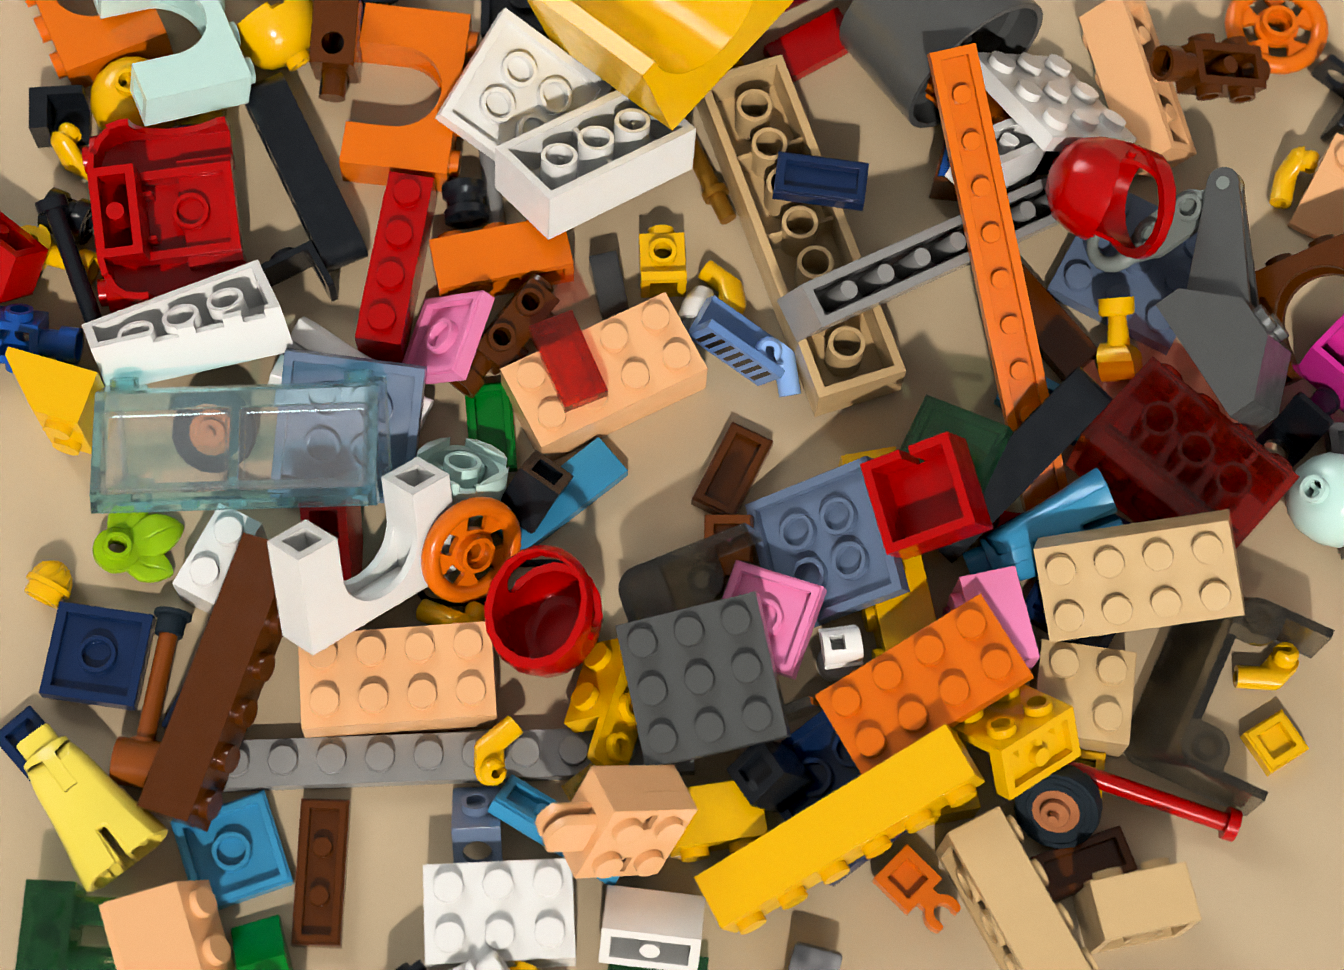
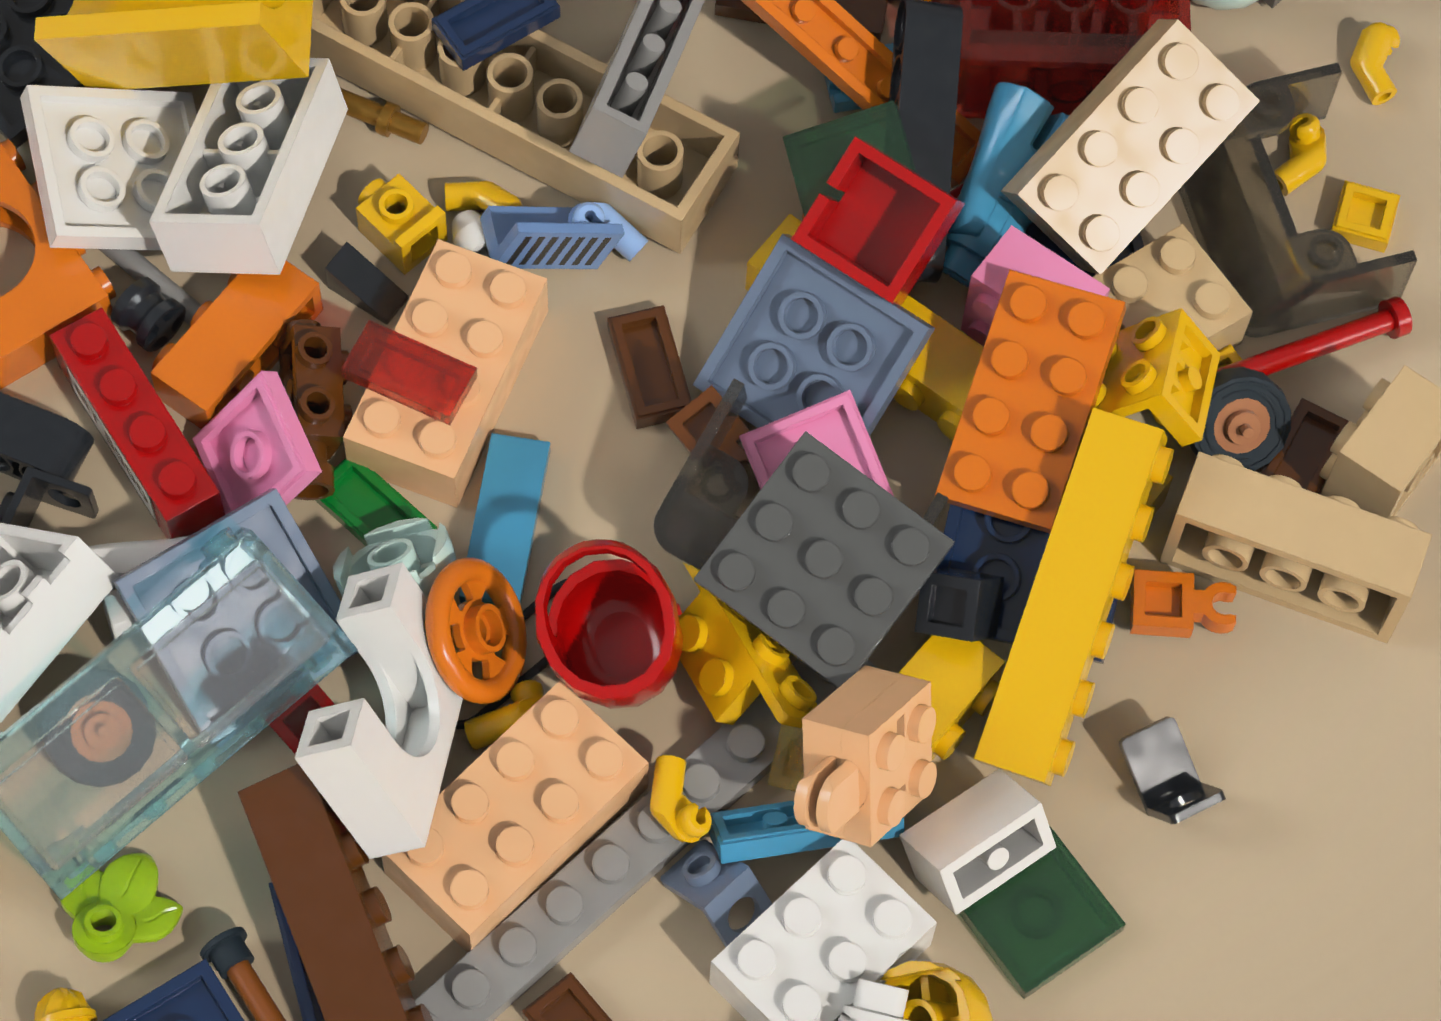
camera: 40 degrees left, 5 degrees down
(211, 558) = (226, 853): white brick -> none
(535, 490) = (483, 525): black panel -> none
(840, 652) = (914, 437): white leg -> none

